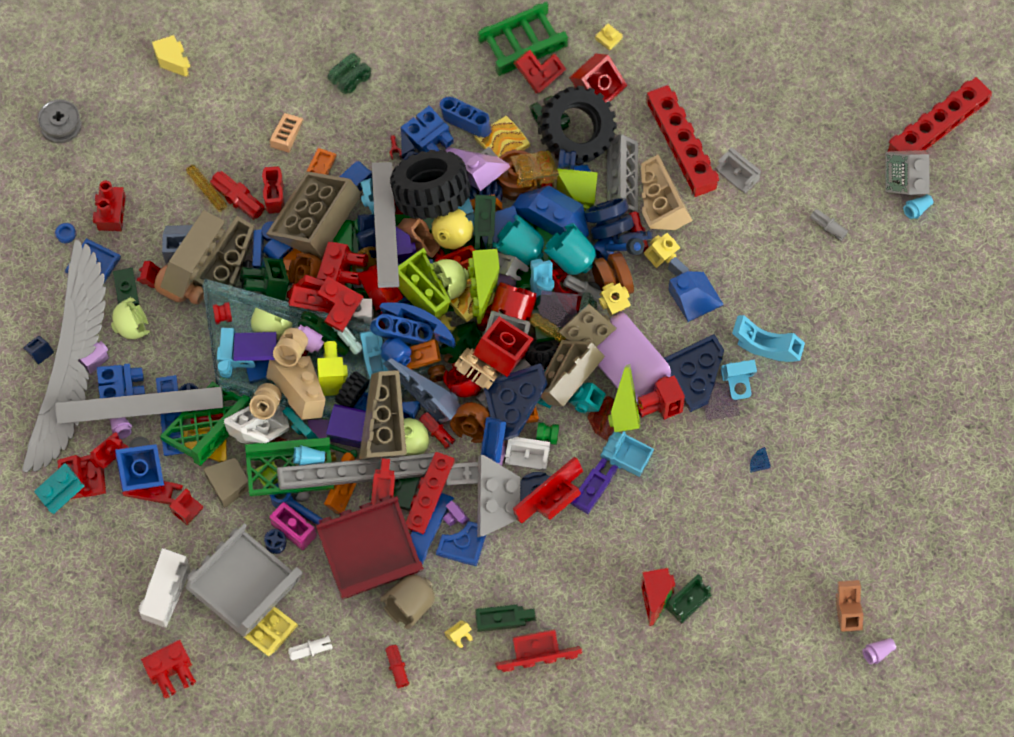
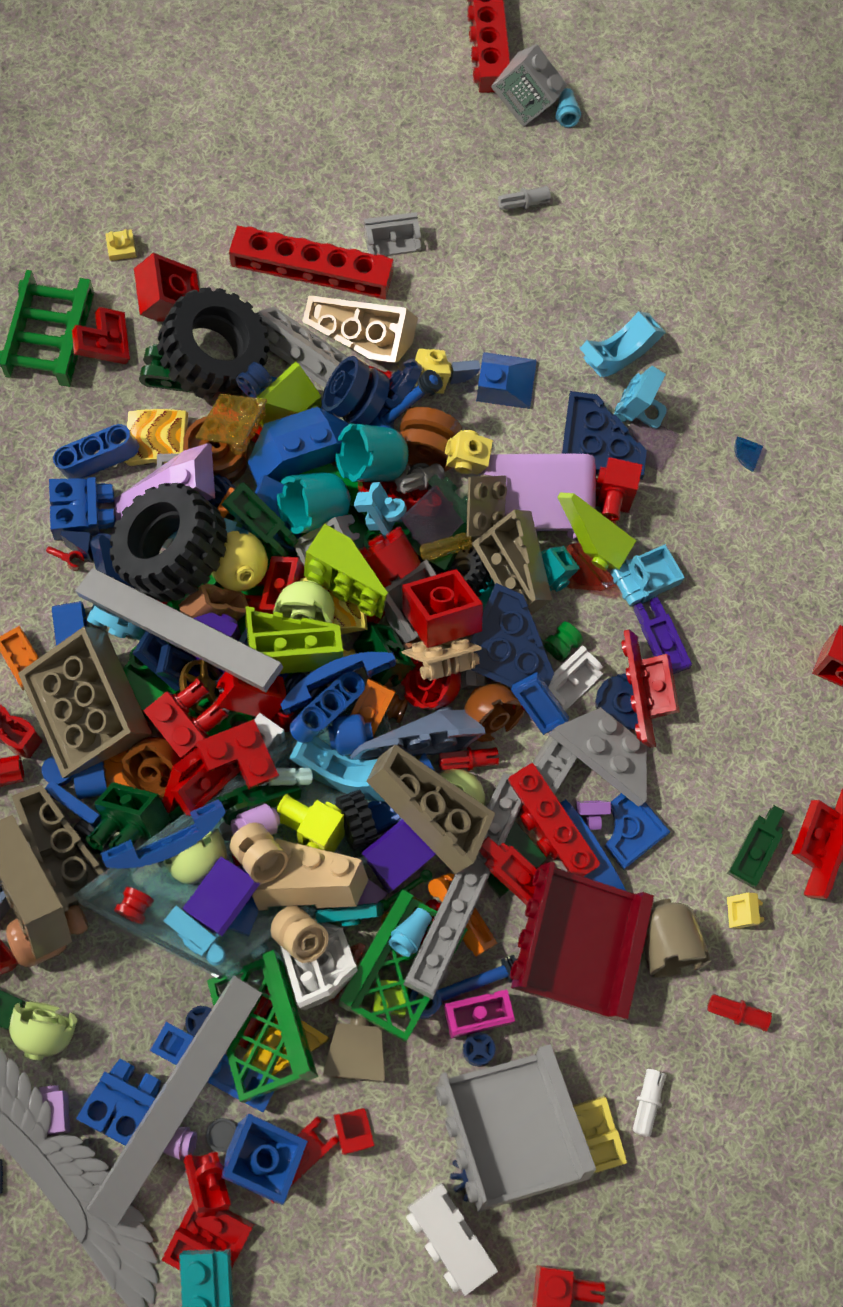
camera: 60 degrees left, 5 degrees up
(243, 289) = (204, 821): none -> blue slope

